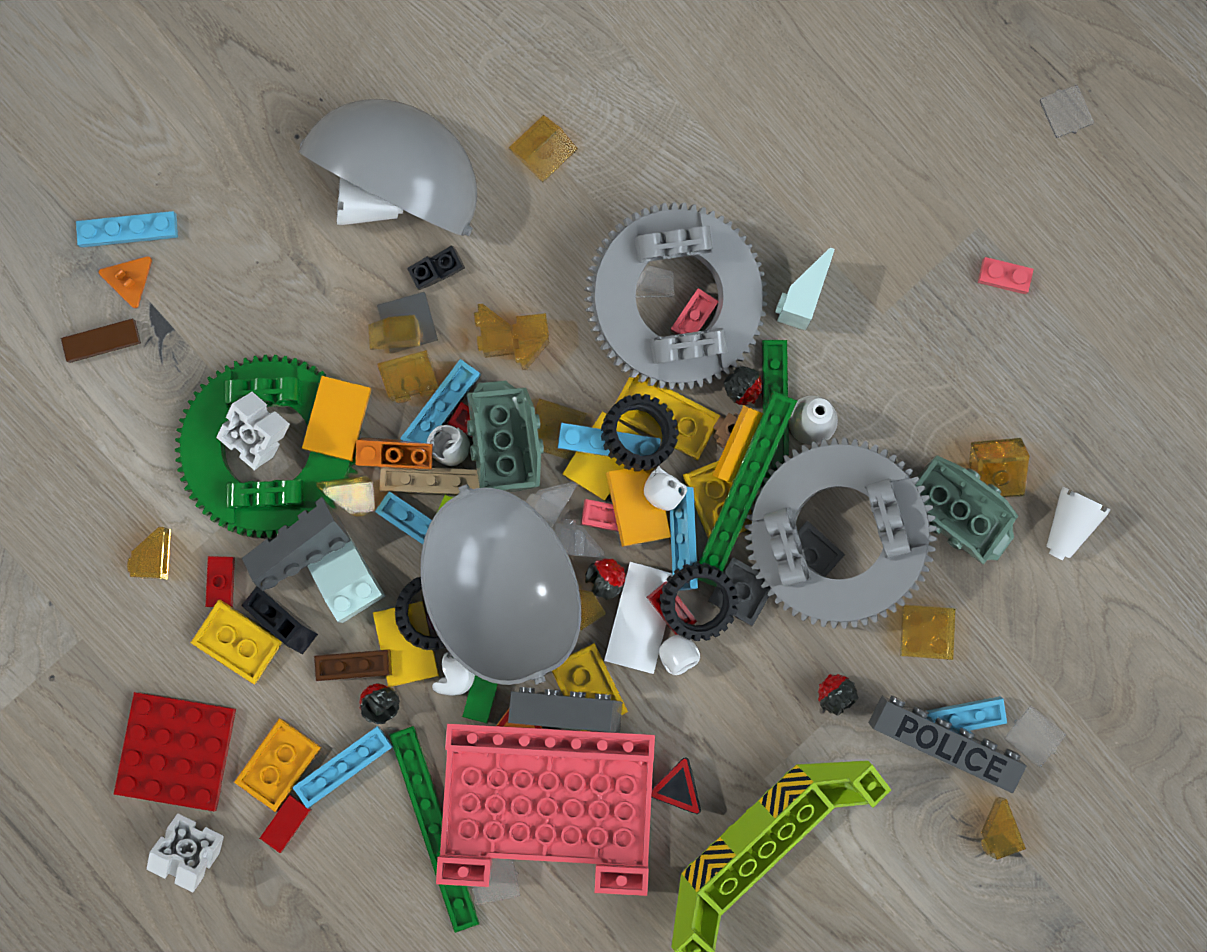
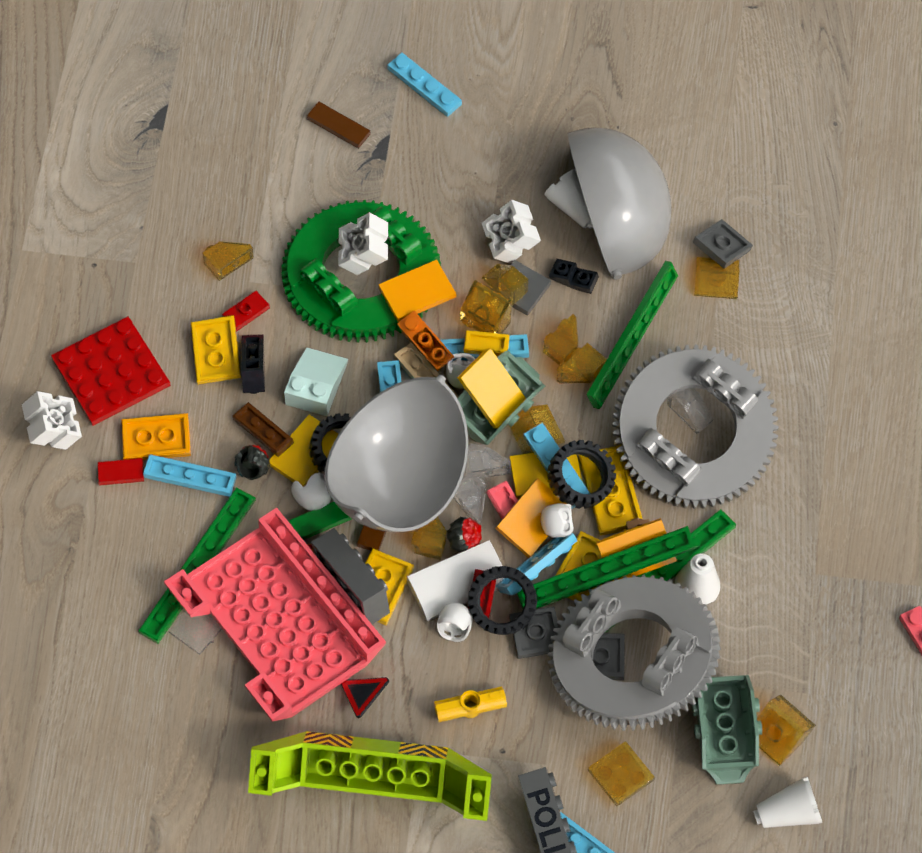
camera: 45 degrees right, 20 degrees down
(128, 278) = (393, 110): orange piece -> none
(296, 546) = (312, 333): dark grey wedge -> none
(350, 286) = (511, 231): none -> white brick
(351, 494) = (374, 337): clear yellow slope -> none
(440, 402) = (478, 341): none -> yellow tile
(497, 442) = (491, 388): none -> yellow tile
(518, 115) = (722, 243): none -> dark grey tile
(538, 269) = (632, 335): none -> green tile
(695, 313) = (700, 451): coral plate -> none
(743, 385) = (677, 516): pearl dark grey piece -> none
(771, 689) = (485, 701): none -> yellow piece
(801, 299) = (778, 504): light aqua slope -> none
(837, 694) = (521, 745): pearl dark grey piece -> none

